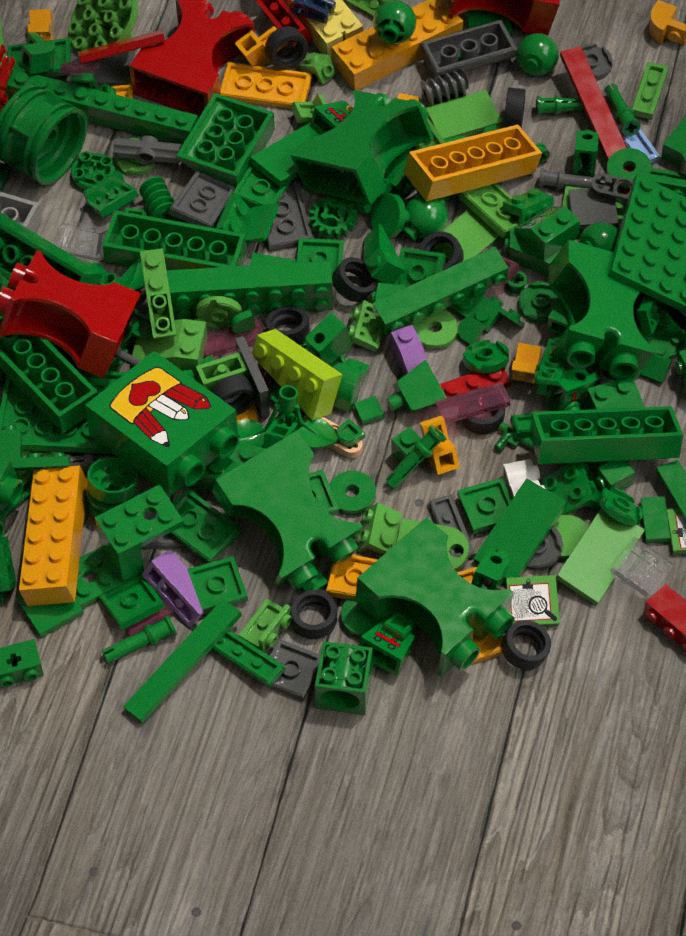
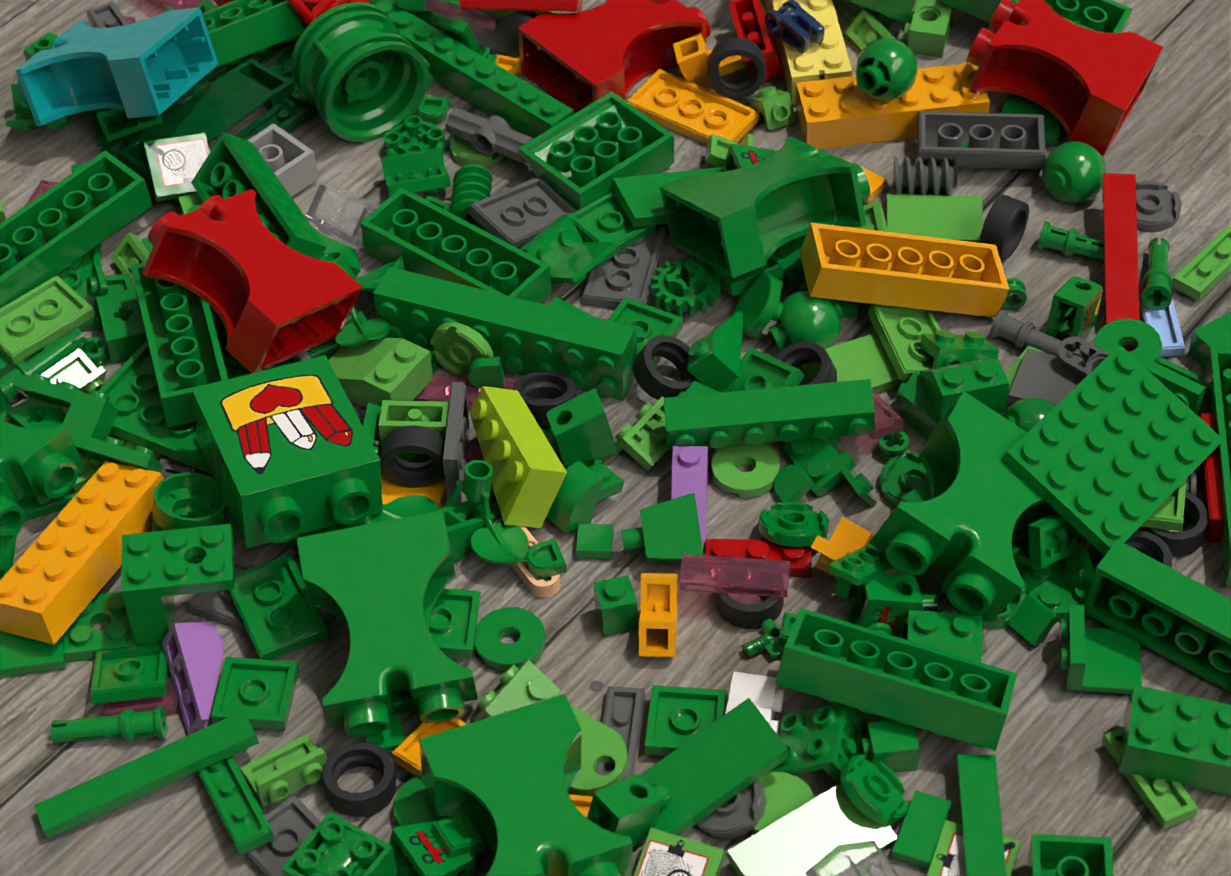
camera: 25 degrees right, 10 degrees down
(92, 142) = (434, 109): none -> green tile
(158, 293) = (382, 295): bright green slope -> none
(422, 449) = (625, 609): green pin -> none

